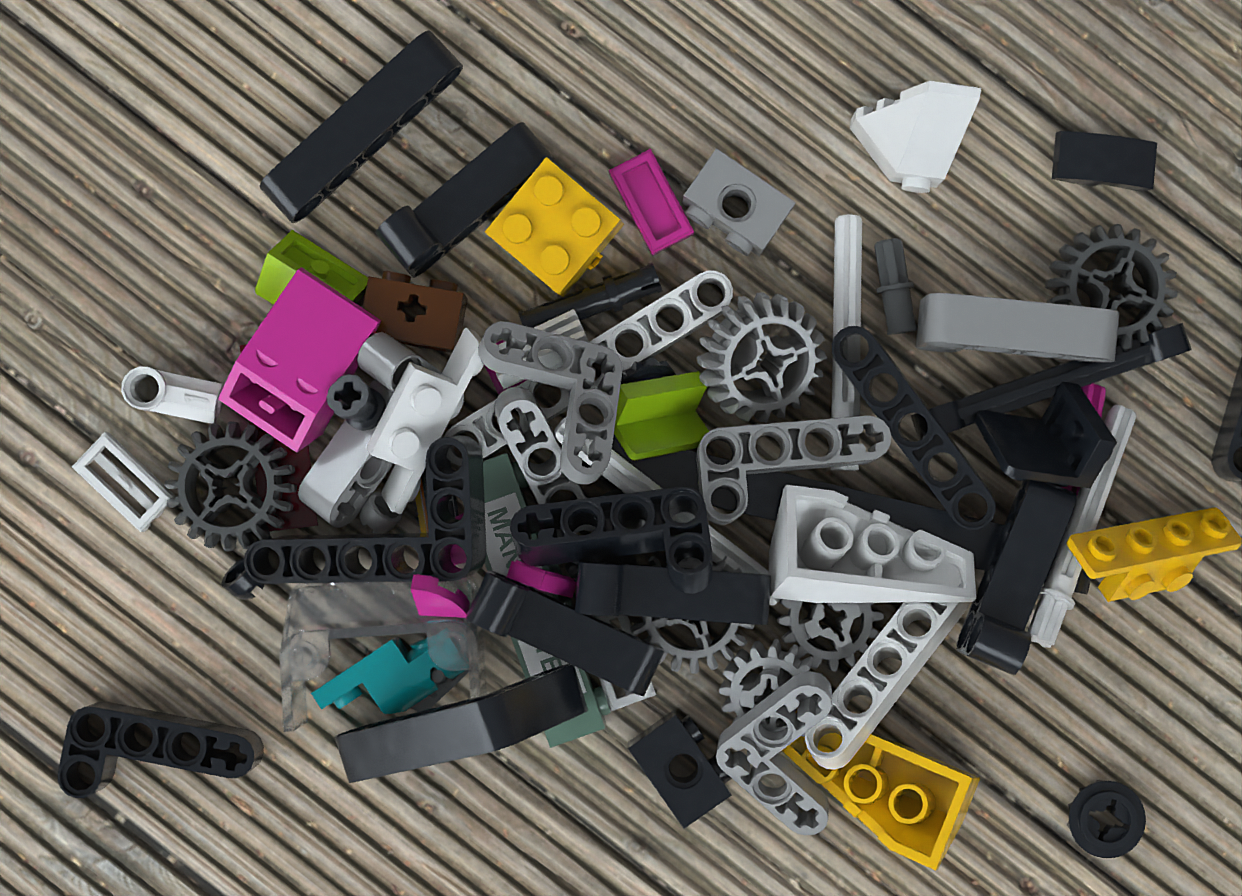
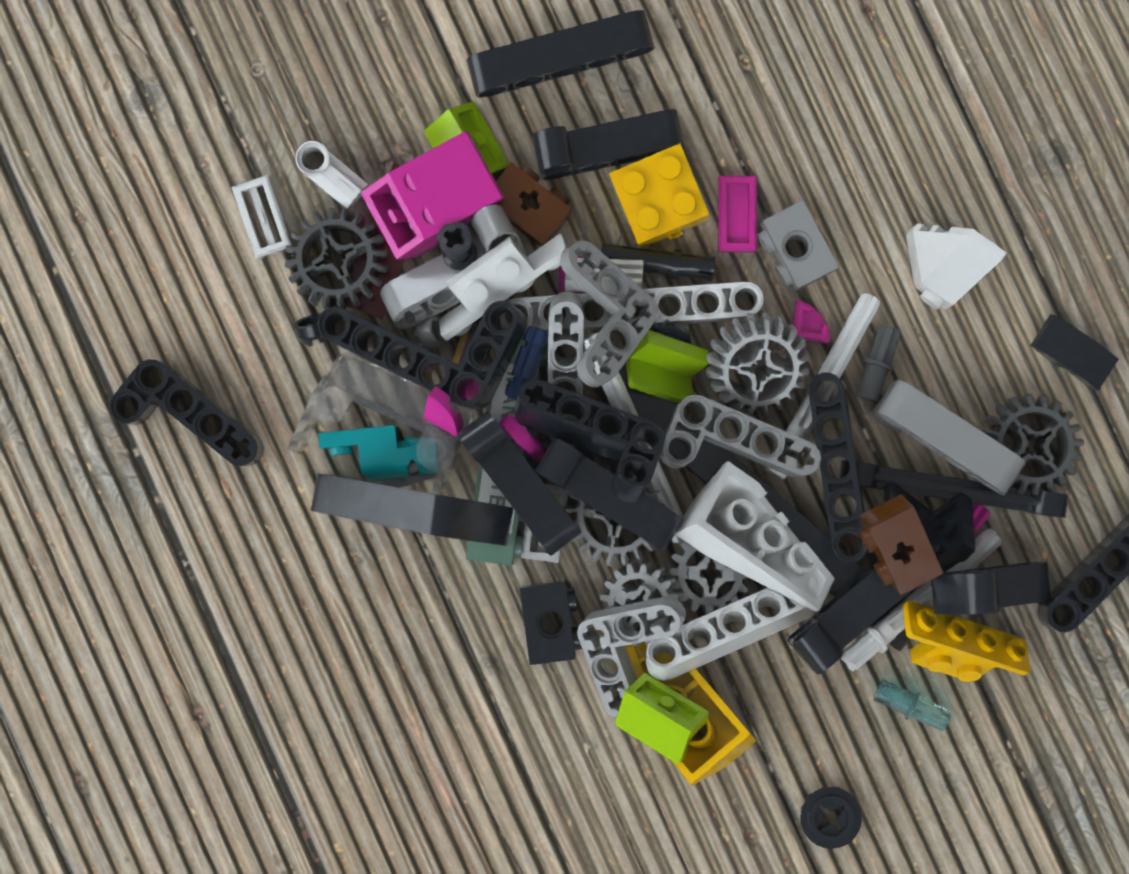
camera: 25 degrees right, 0 degrees up
(502, 489) = (527, 360): none -> dark blue axle
(795, 281) = (810, 323): none -> dark pink tile
(861, 811) = (660, 717): none -> lime panel
(1054, 488) = (899, 524): none -> reddish brown brick
(1131, 646) = (912, 705): none -> clear light blue axle
(1150, 476) = (990, 588): none -> black beam

